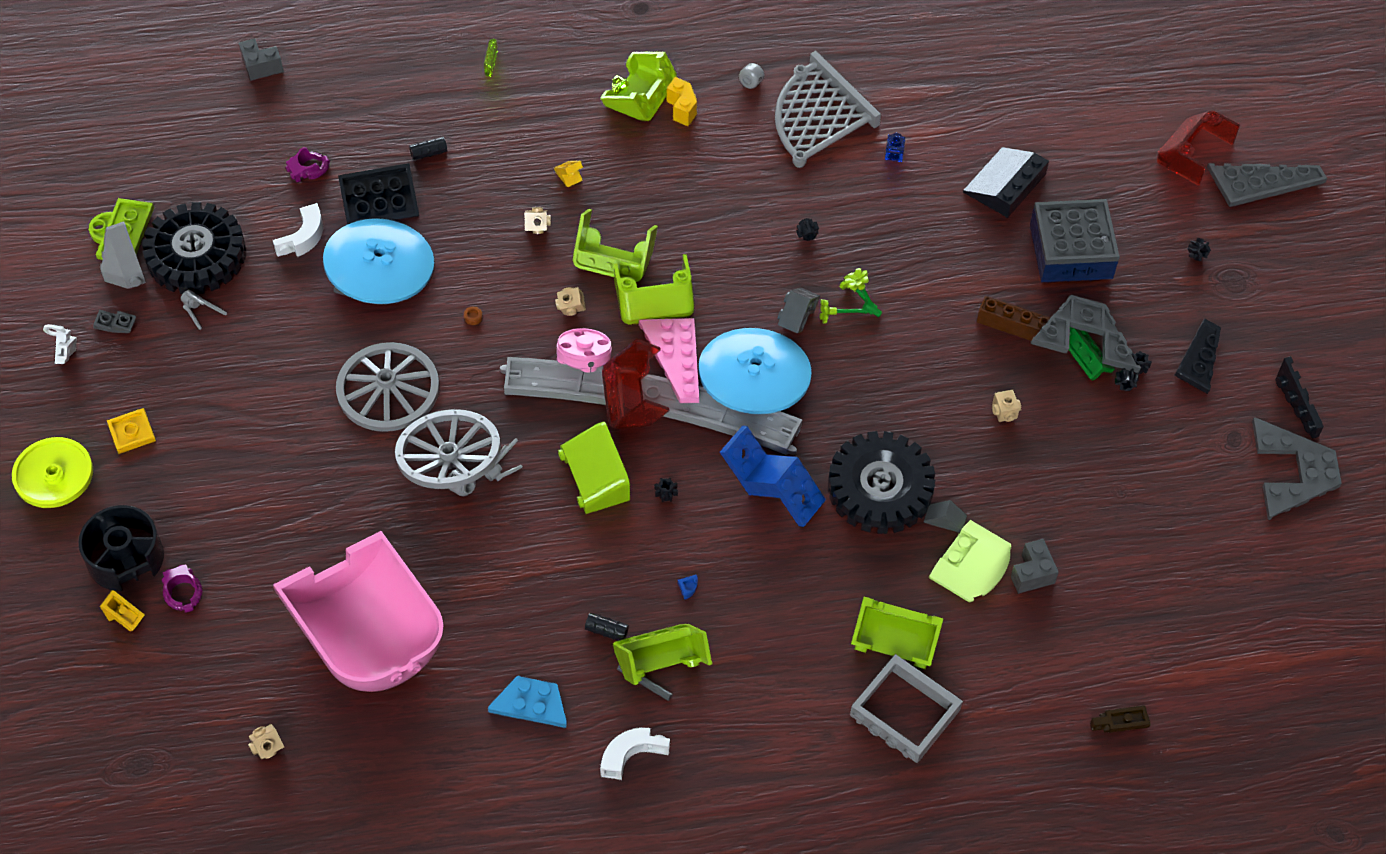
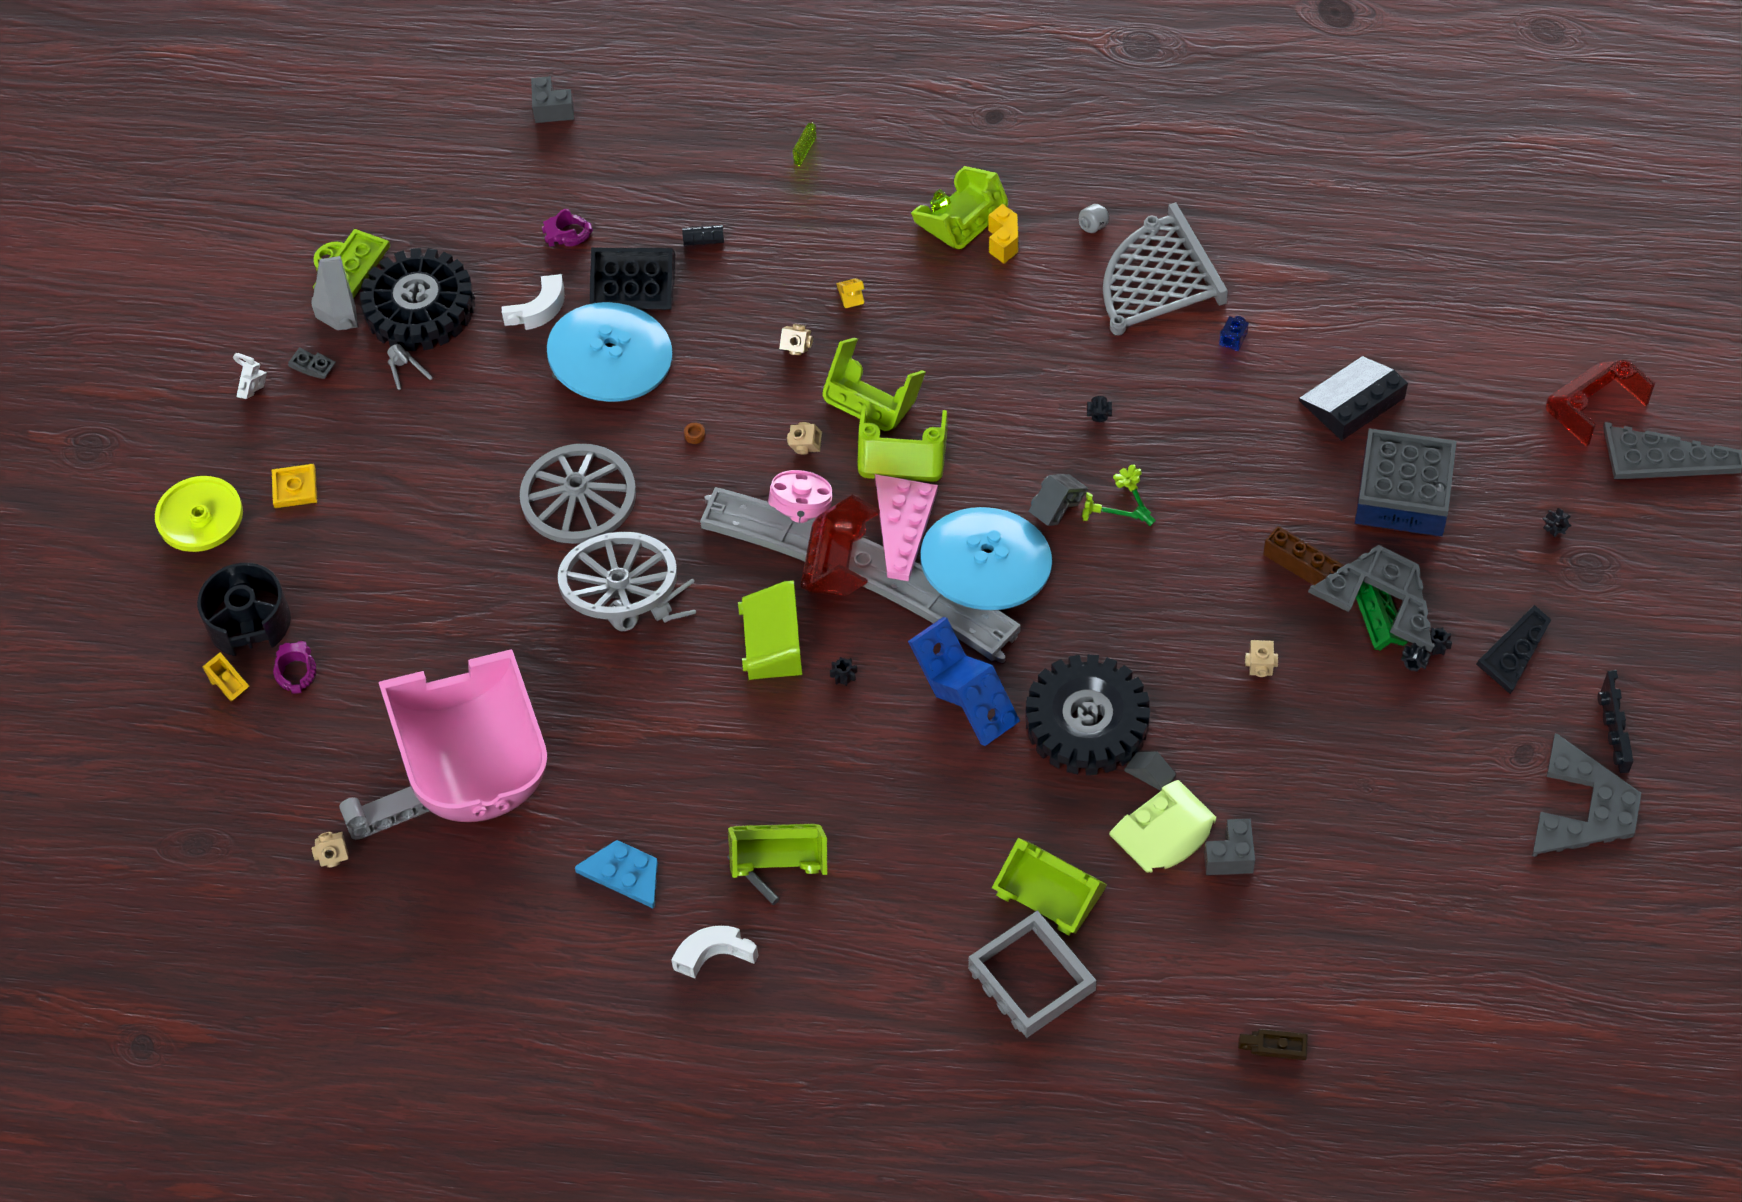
camera: 20 degrees right, 0 degrees up
(302, 699) = (381, 813): none -> light grey beam
(606, 627) = (729, 808): black axle -> none
(688, 586) = (835, 783): blue tile -> none

